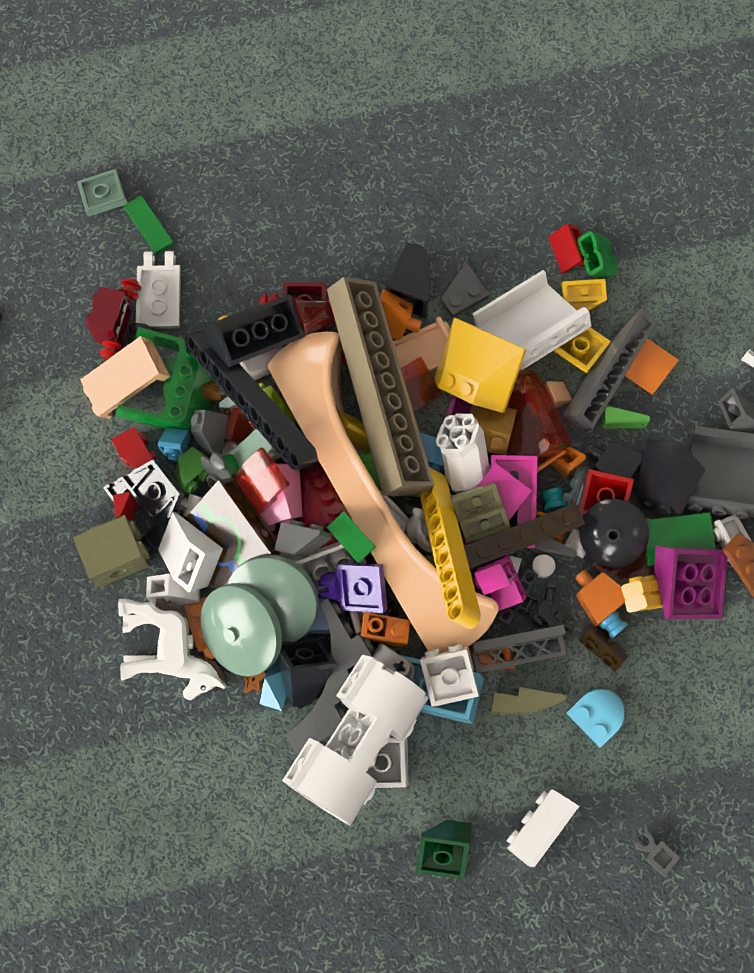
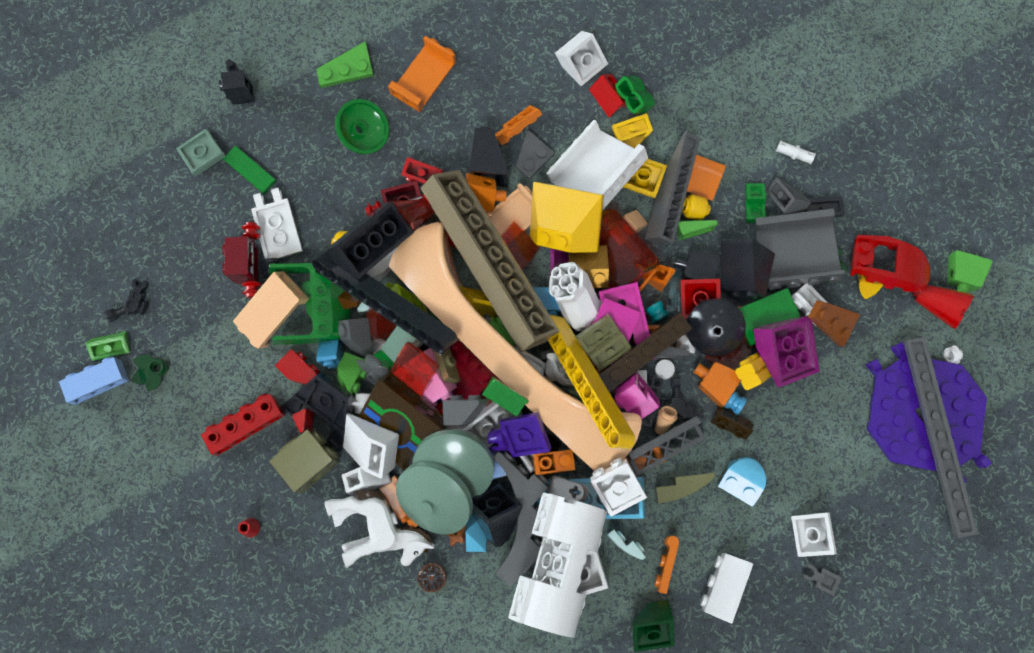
camera: 15 degrees left, 5 degrees up
(30, 611) = (253, 527): none -> red cone
(56, 493) = (242, 424): none -> red brick
(162, 130) = (236, 84): none -> black brick
(212, 720) = (432, 577): none -> reddish brown wheel
(287, 144) = (347, 67): none -> bright green wing
(295, 210) = (370, 121): none -> green dish
(298, 488) = (448, 367): none -> olive plate
(329, 272) = (418, 170): none -> red brick
(369, 174) = (424, 74): none -> orange panel
(446, 754) = (630, 548): none -> light aqua slope
(454, 254) = (517, 124): none -> orange hinge
(481, 781) = (667, 563): none -> orange plate
(528, 619) = (665, 419): none -> light nougat cone
(550, 200) = (582, 57): none -> white slope
(630, 396) = (696, 207): none -> yellow head
(661, 799) = (813, 534): none -> white slope
(701, 408) = (754, 201): none -> green slope

